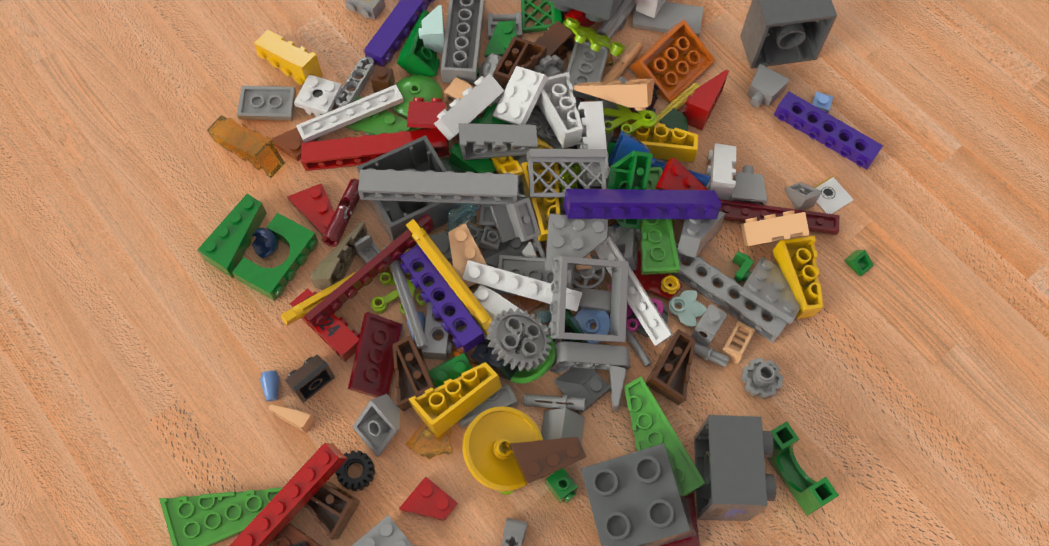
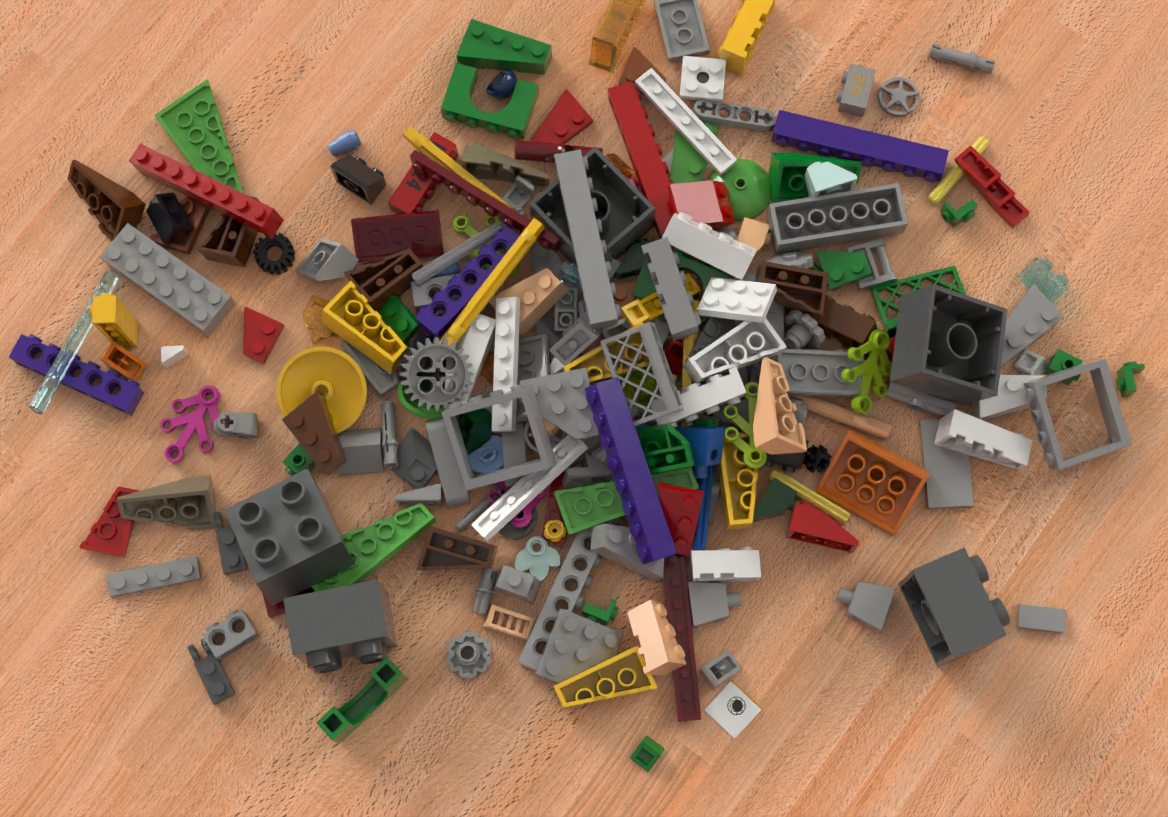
camera: 80 degrees right, 10 degrees up
(296, 418) = (314, 179): light nougat slope -> none
(382, 78) = (746, 144): reddish brown brick -> none
(822, 101) = (867, 681): light blue plate -> none
(827, 130) = (849, 638): dark purple brick -> none

